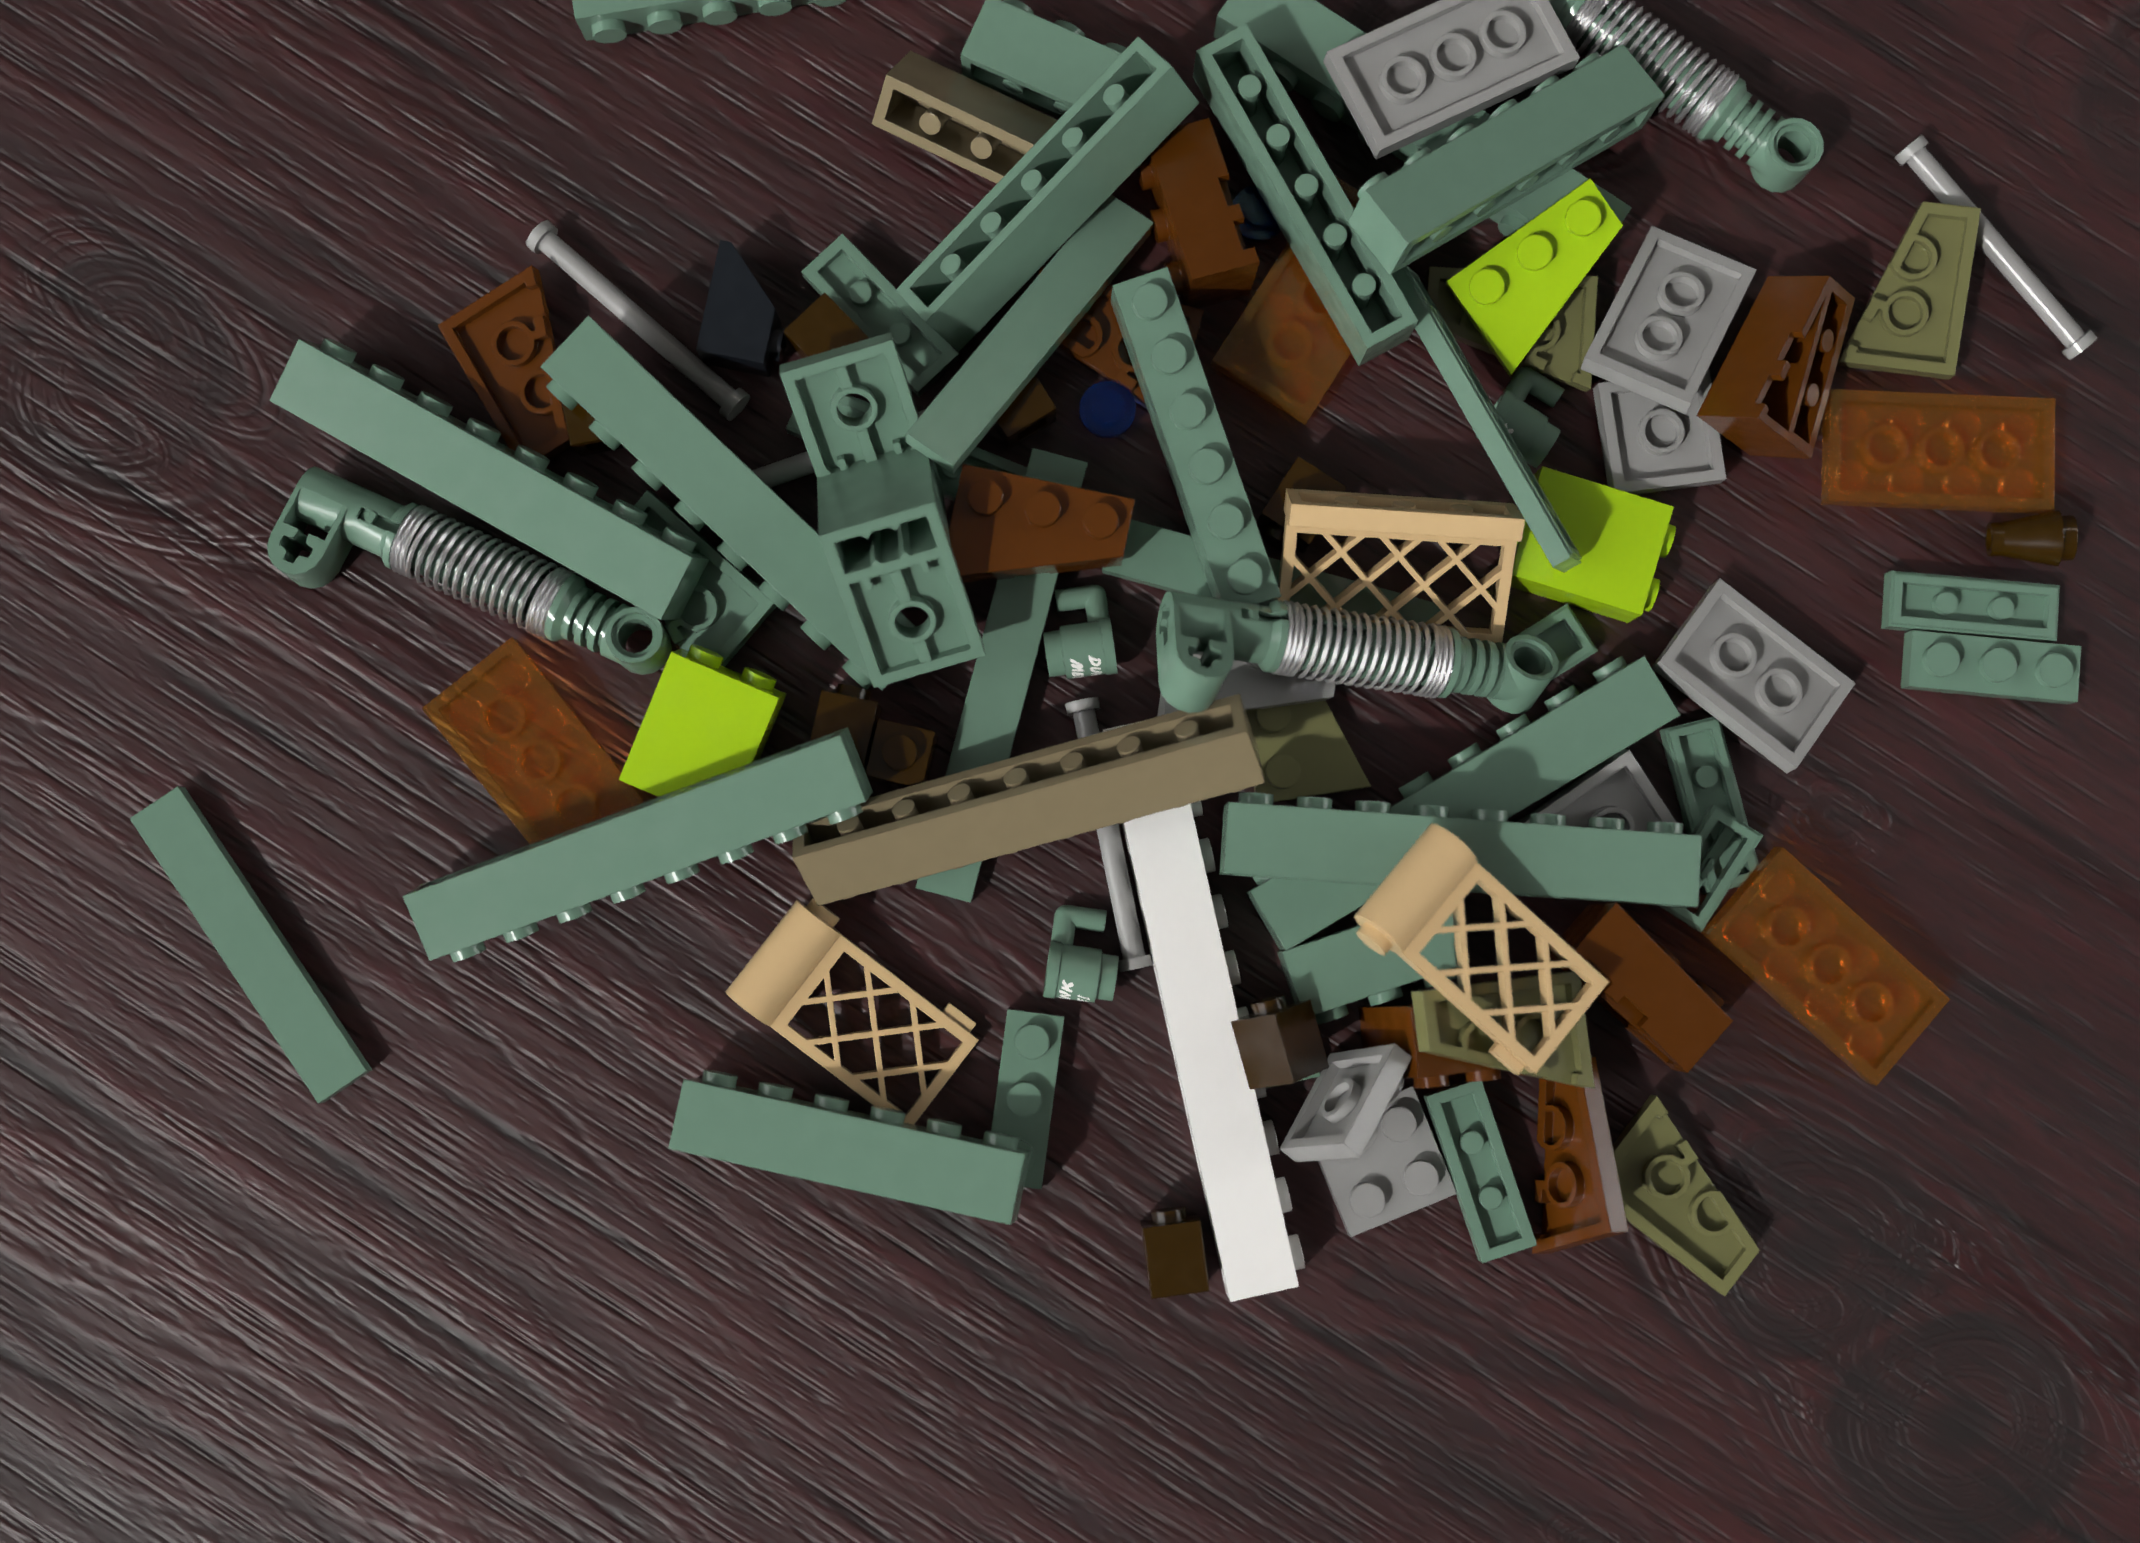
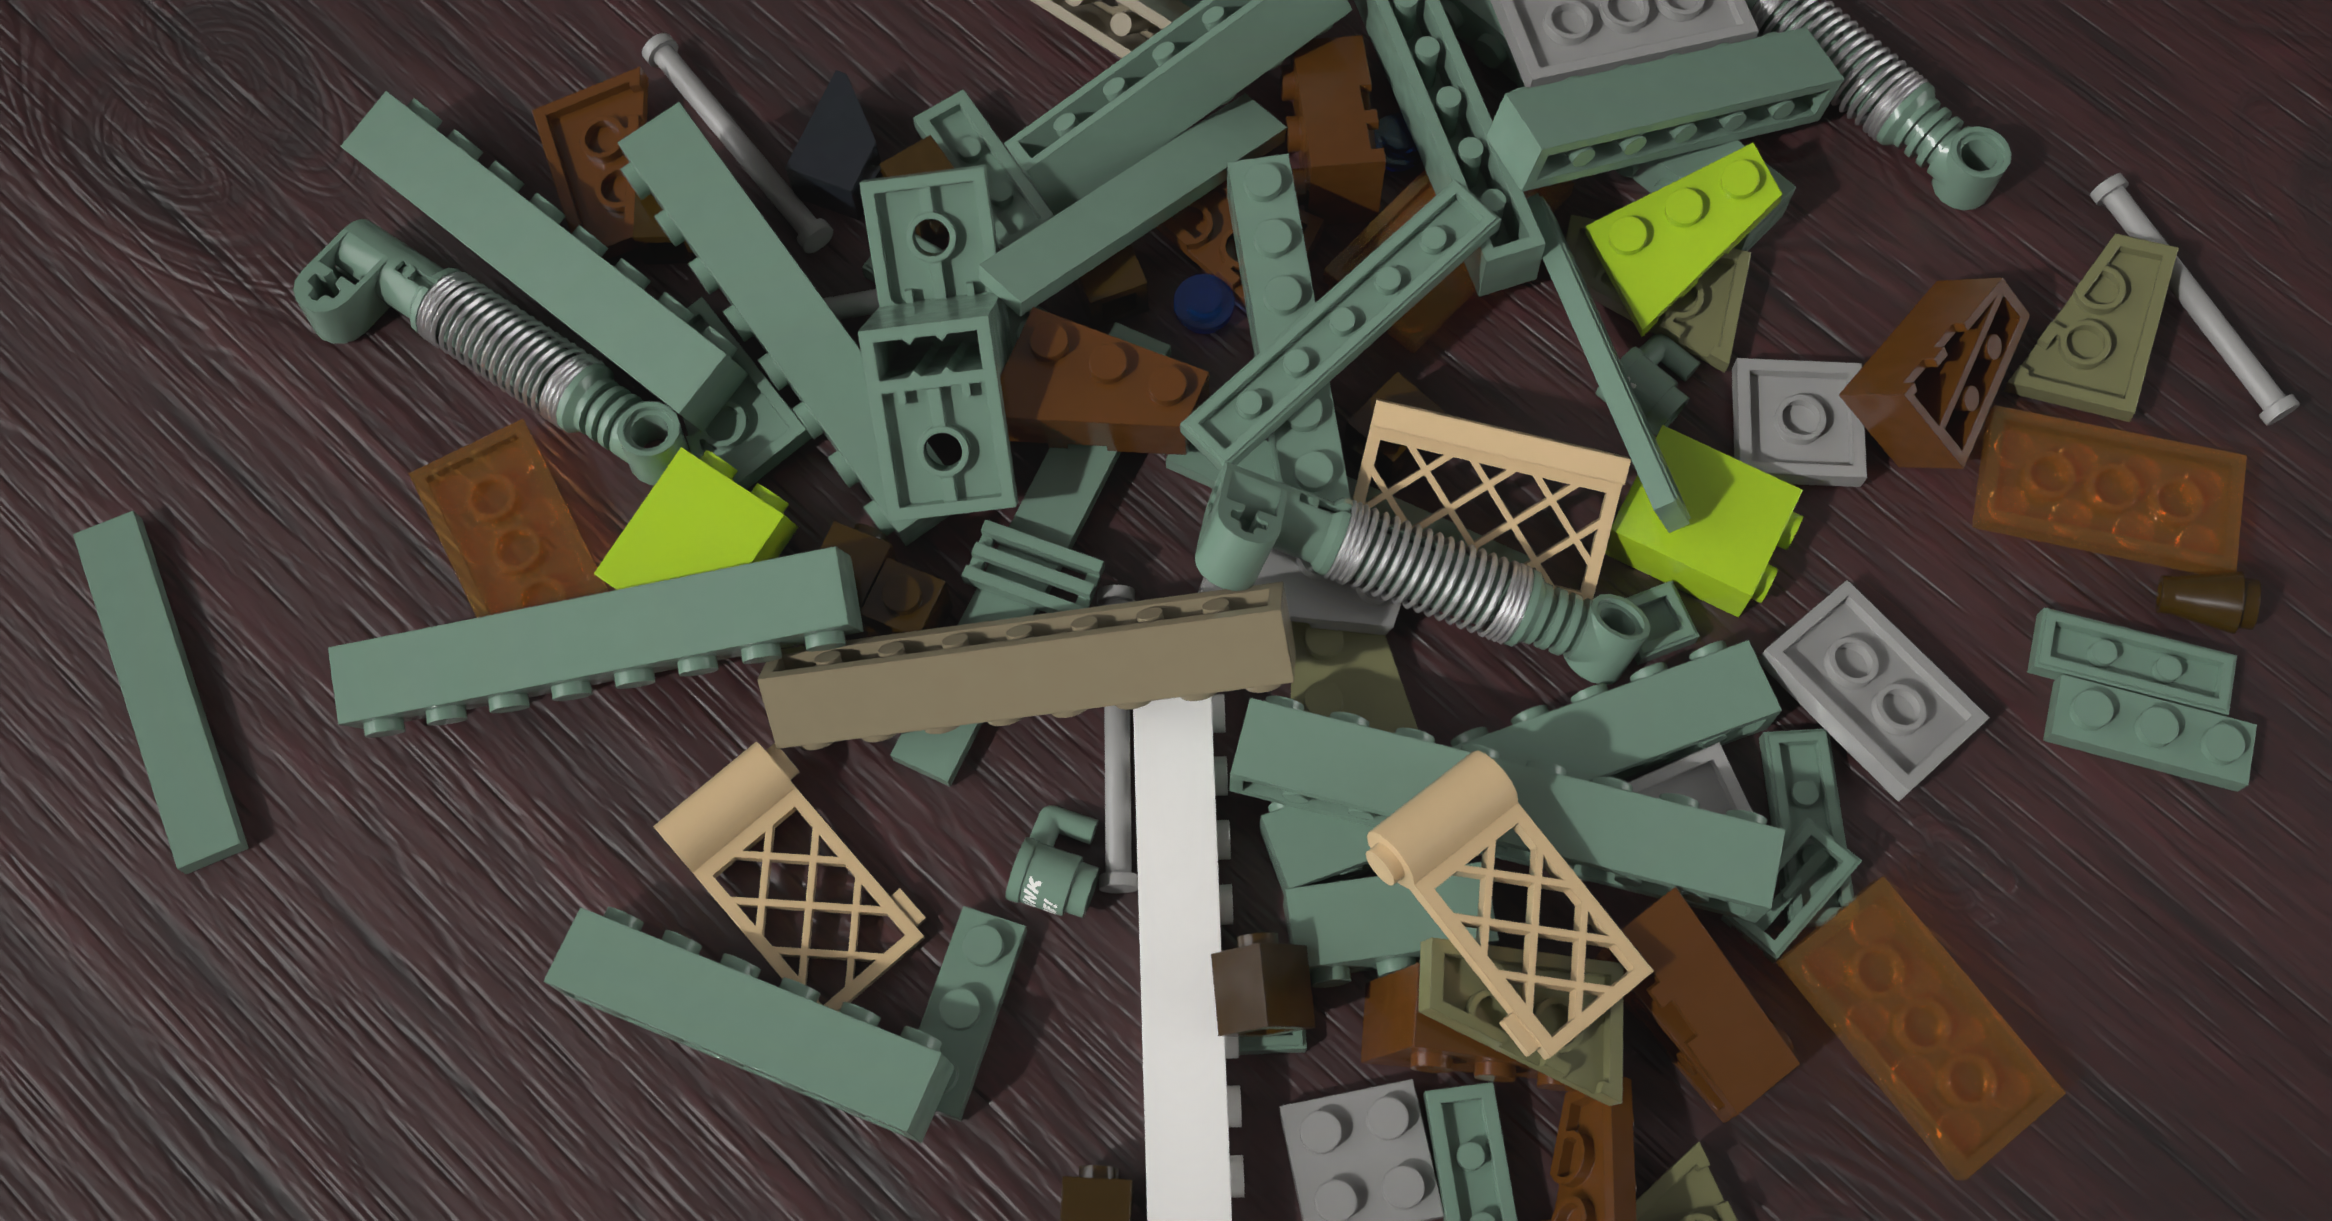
camera: 20 degrees right, 15 degrees down
(960, 694) = (985, 553): none -> sand green tile
(1086, 646) = (1129, 532): sand green piece -> none
(1248, 435) = (1340, 326): none -> sand green tile
(1347, 1104) = (1327, 1070): light grey plate -> none
(1668, 319) = (1821, 306): light grey plate -> none

